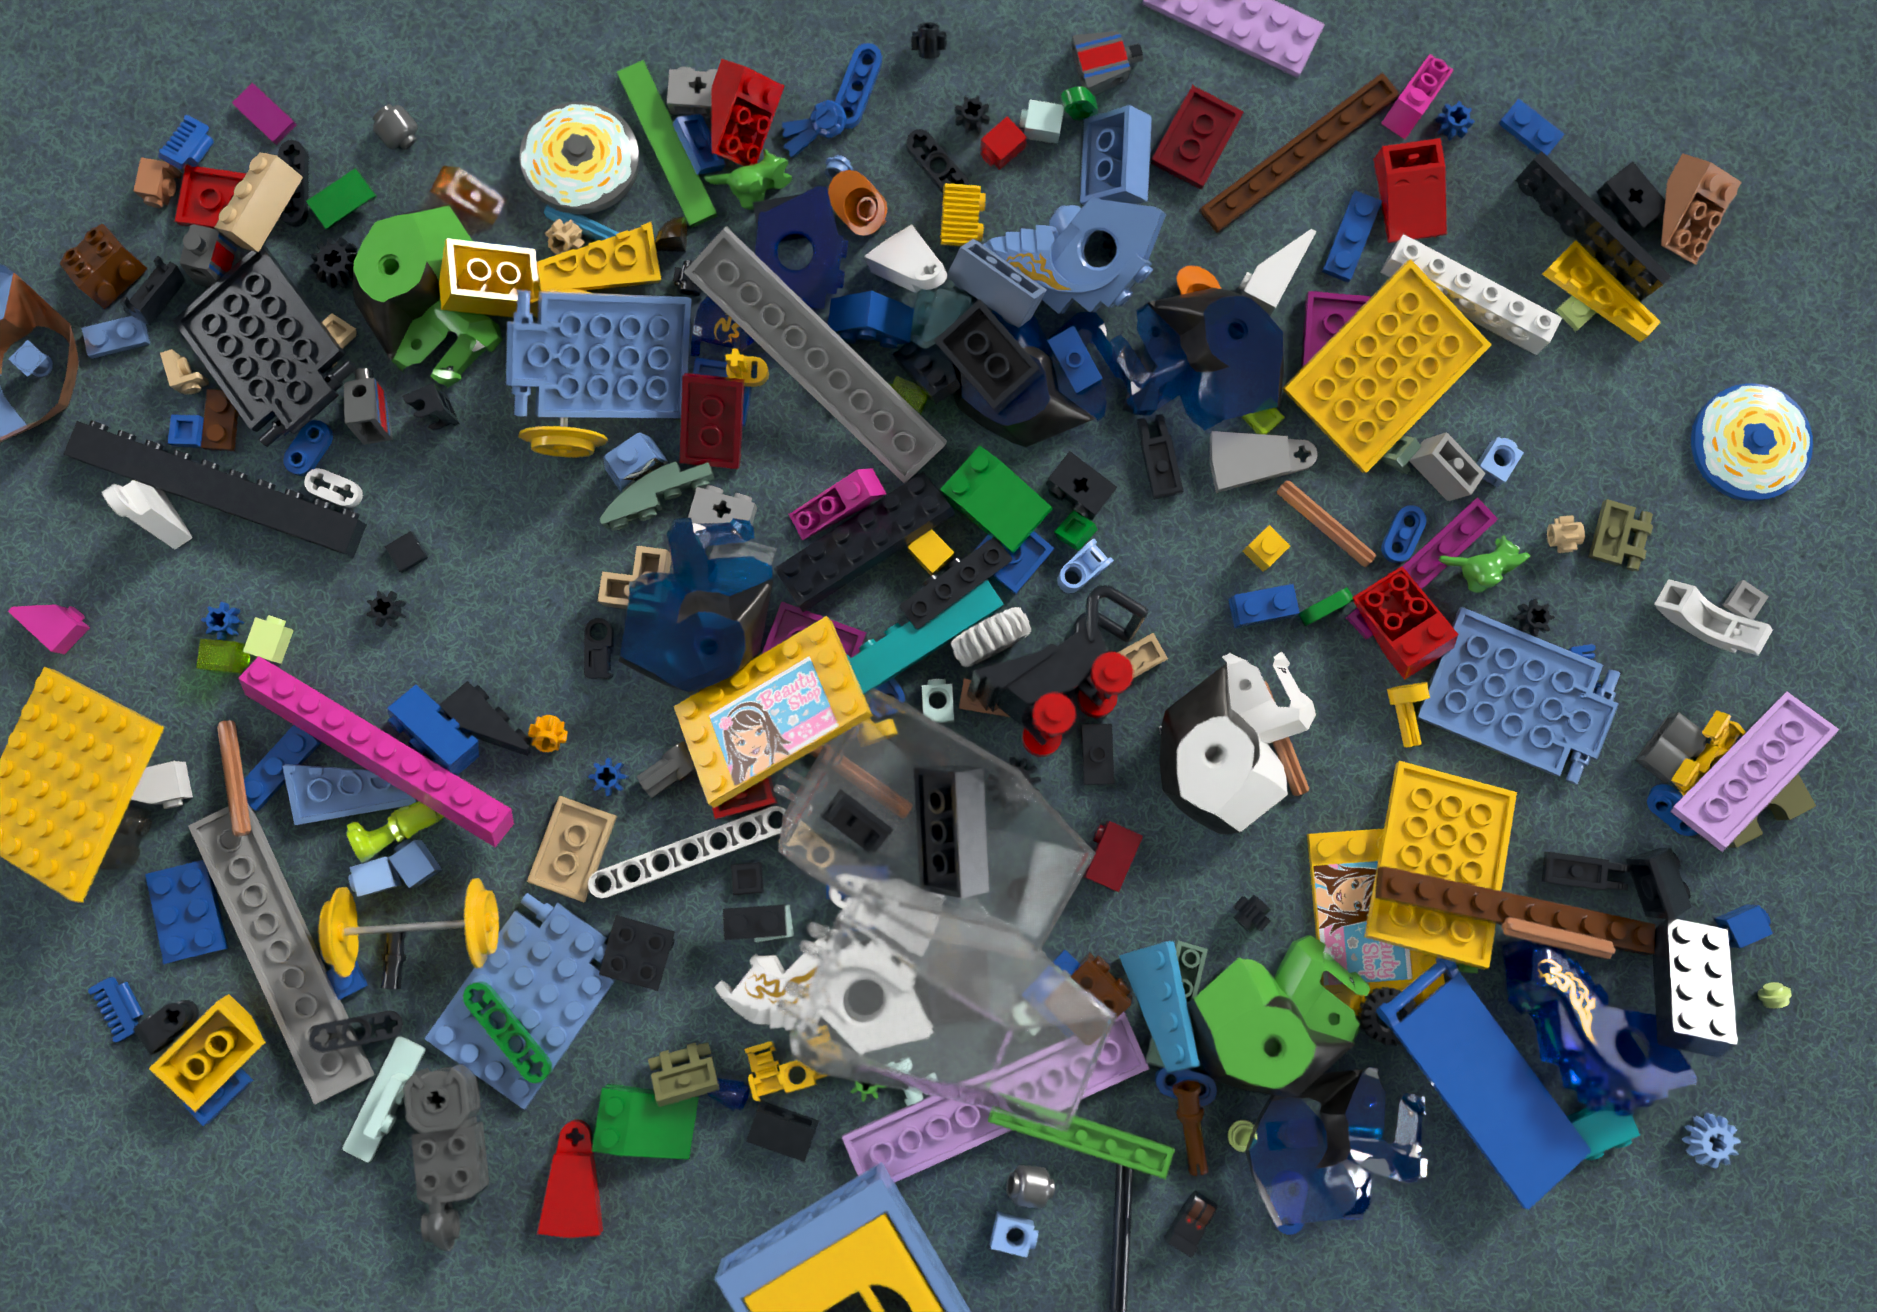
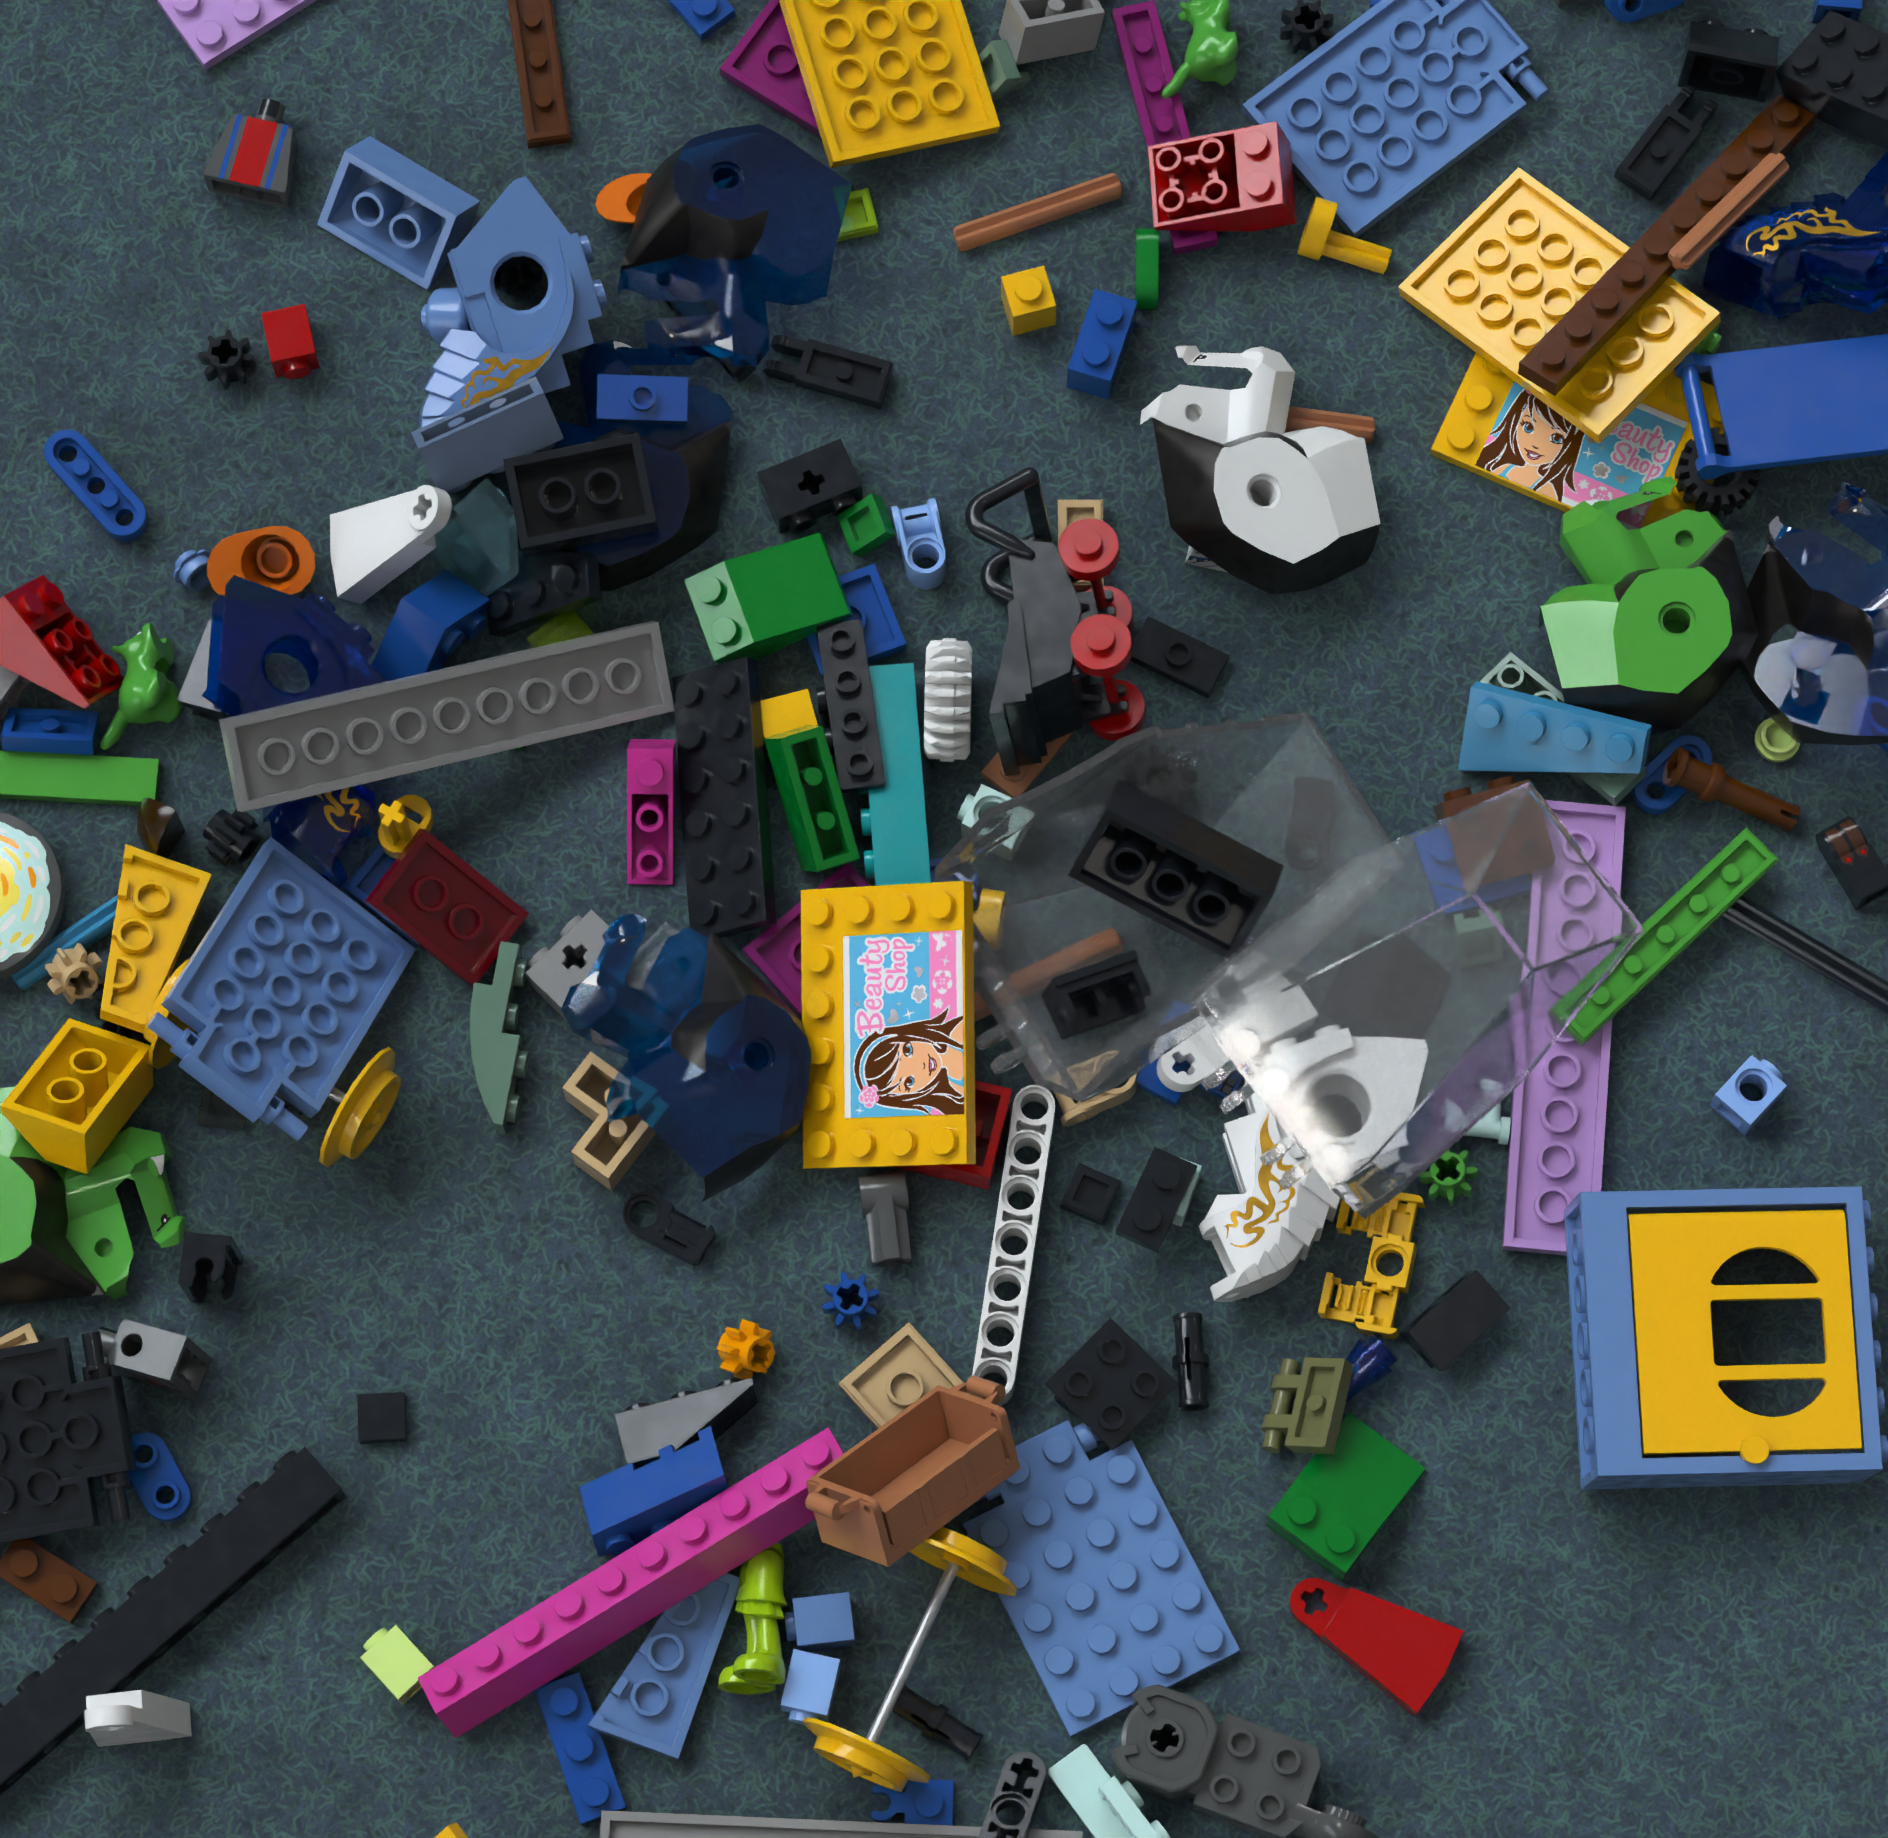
camera: 55 degrees left, 10 degrees down
(185, 431) = (35, 1630): blue plate -> none
(214, 621) = (323, 1708): blue gear -> none
(222, 656) = (385, 1738): clear neon green brick -> none
(234, 778) = (566, 1806): nougat axle -> none
(331, 494) = (227, 1462): white beam -> none
(378, 605) = (456, 1490): black gear -> none
(503, 1035) = (1121, 1601): green beam -> none
(505, 874) = (915, 1472): none -> nougat container
(633, 460) = (439, 1043): medium blue torso -> none
(677, 990) = (1189, 1332): none -> black pin
(826, 120) = (121, 548): blue piece -> none
(887, 591) = (812, 798): none -> green brick
(929, 40) = (93, 360): black gear -> none
(939, 154) = (299, 424): black beam -> none
(961, 214) = (358, 443): yellow brick -> none
(1030, 1186) = (1698, 1039): flat silver head -> none
(1042, 121) = (291, 274): light aqua brick -> none
(1079, 103) = (299, 214): green beam -> none
(1113, 855) = (1332, 705): dark red brick -> none
(1197, 137) = (430, 96): dark red plate -> none
(1251, 913) = (1494, 572): black gear -> none
(1253, 458) = (899, 254): light grey piece -> none
(1275, 273) = (676, 101): white slope -> none
(1403, 535) = (1107, 127): blue plate -> none

